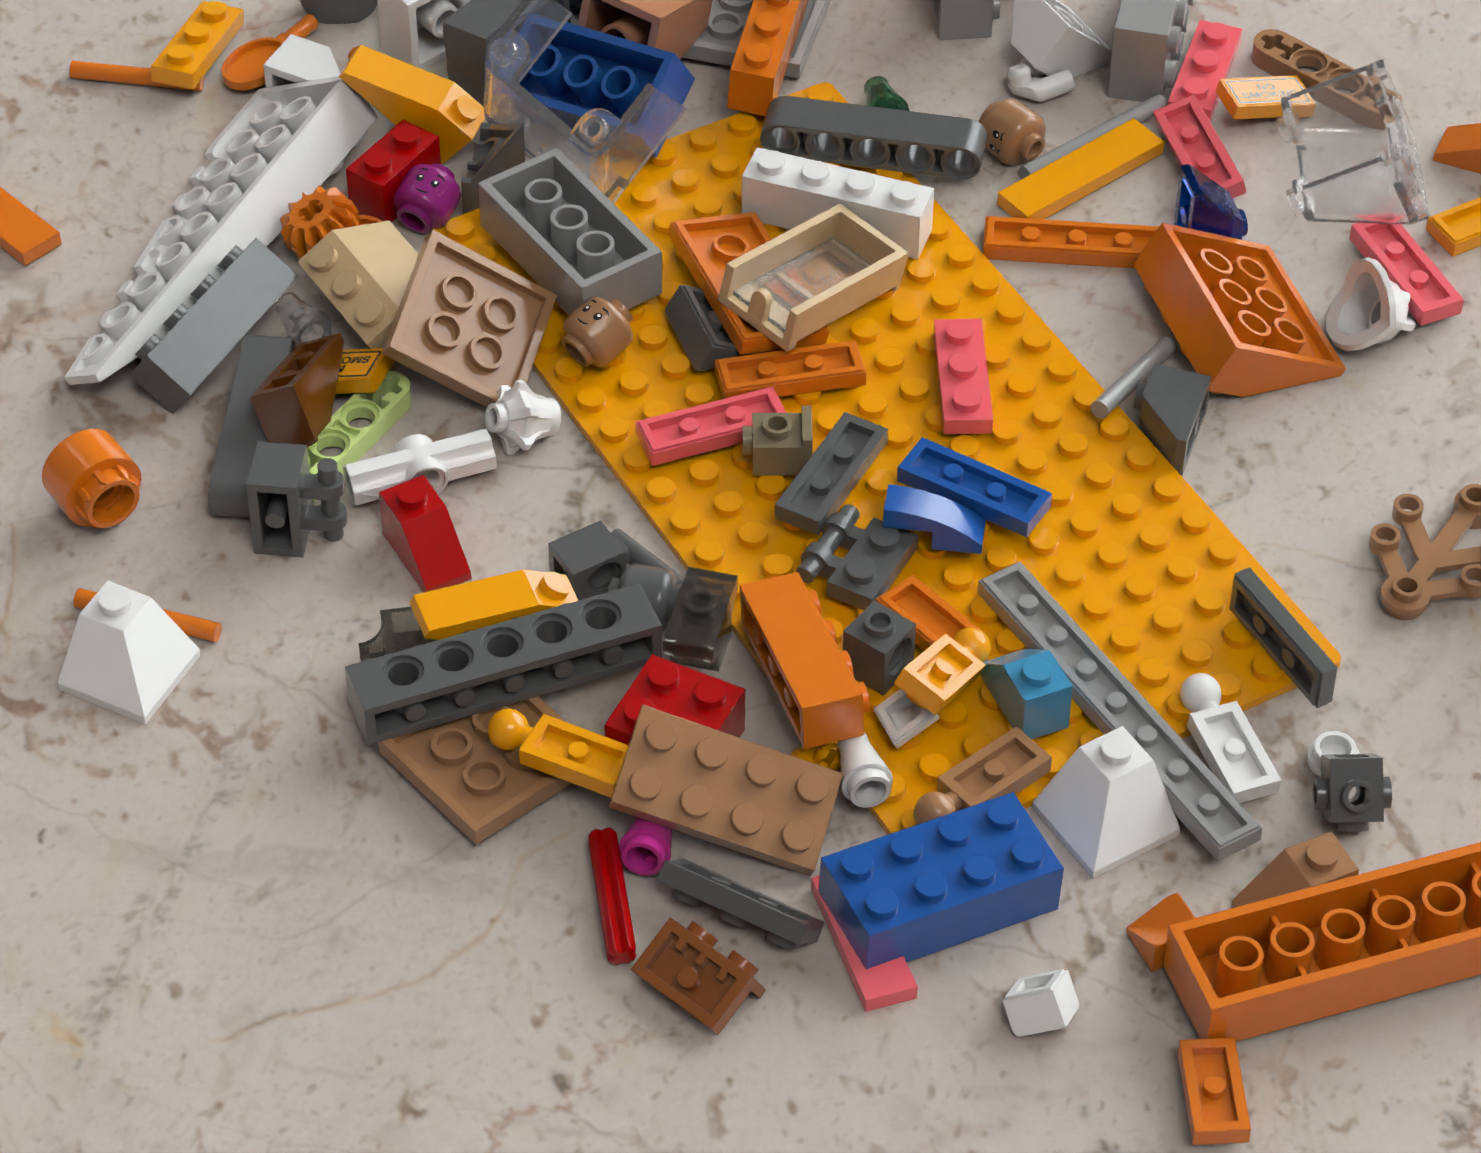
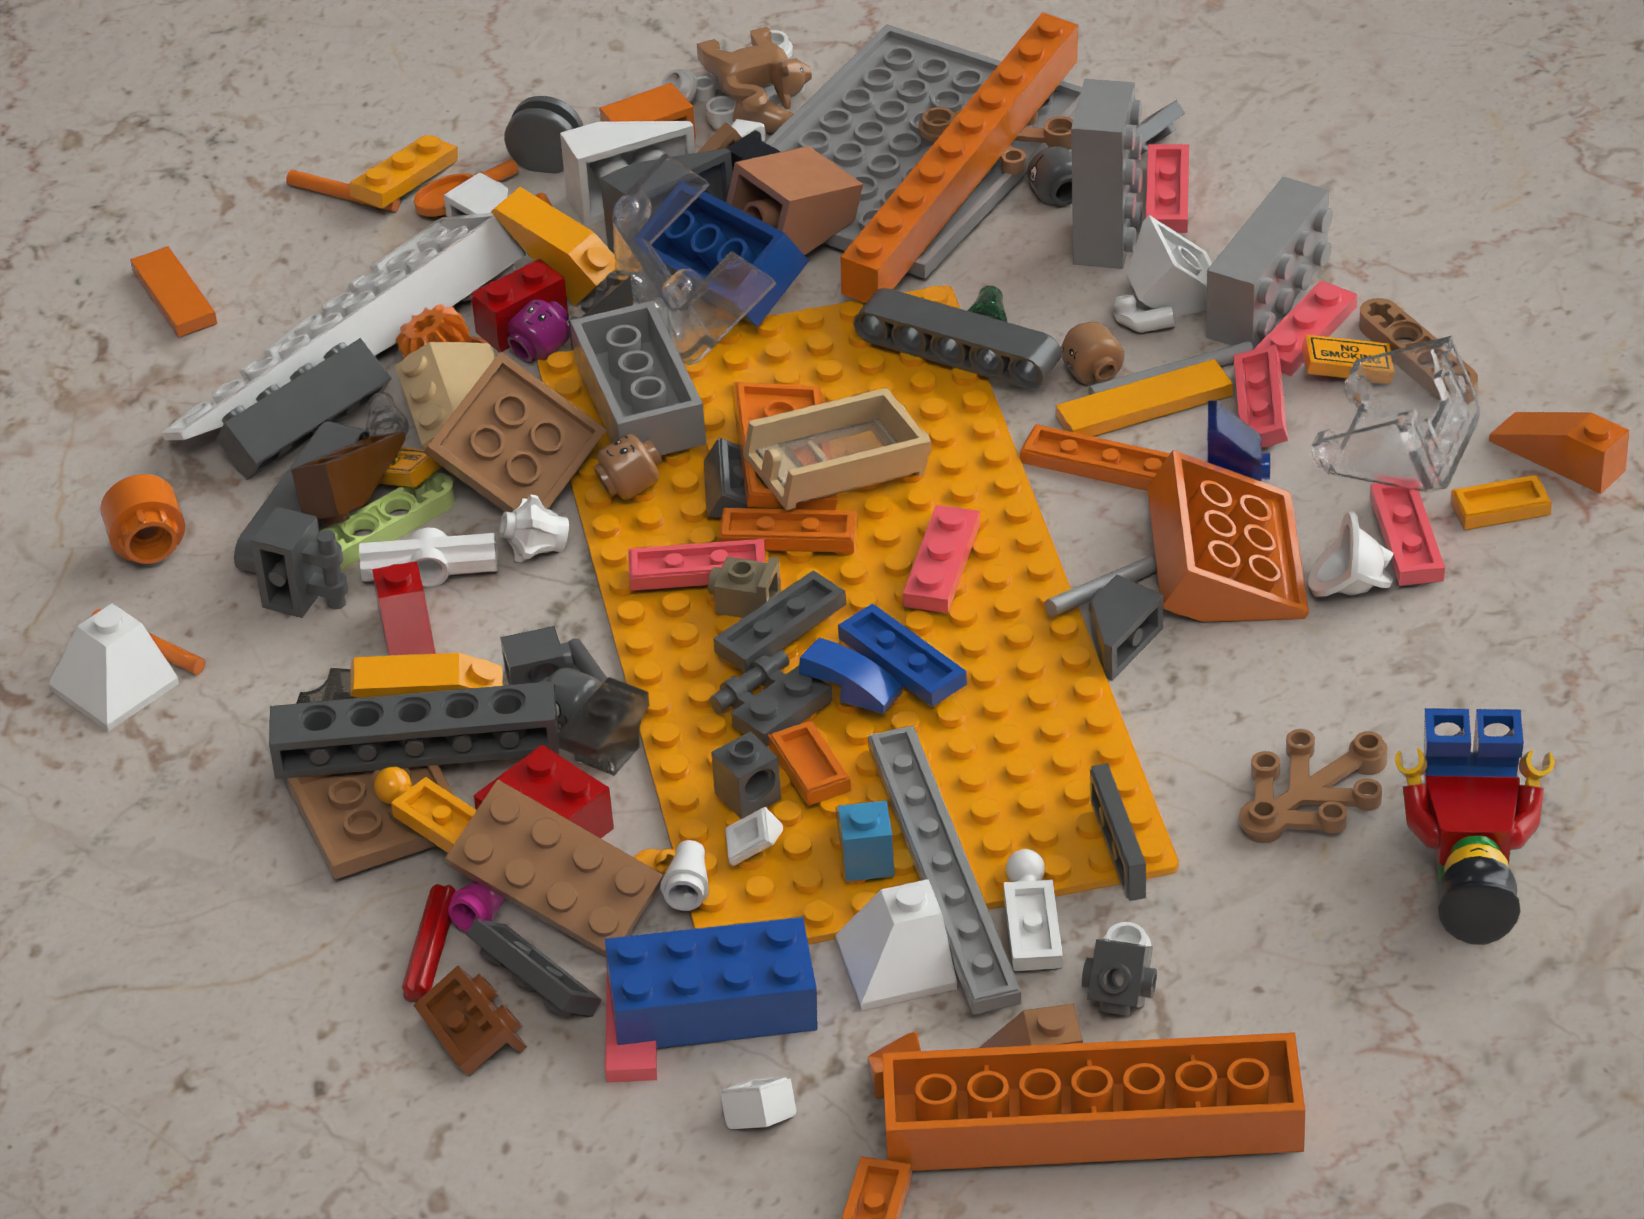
camera: 20 degrees right, 5 degrees down
(795, 189) = (935, 401): white brick -> none
(803, 660) = (672, 772): orange brick -> none
(945, 669) = (793, 802): light orange plate -> none
(993, 771) = (810, 896): medium nougat plate -> none

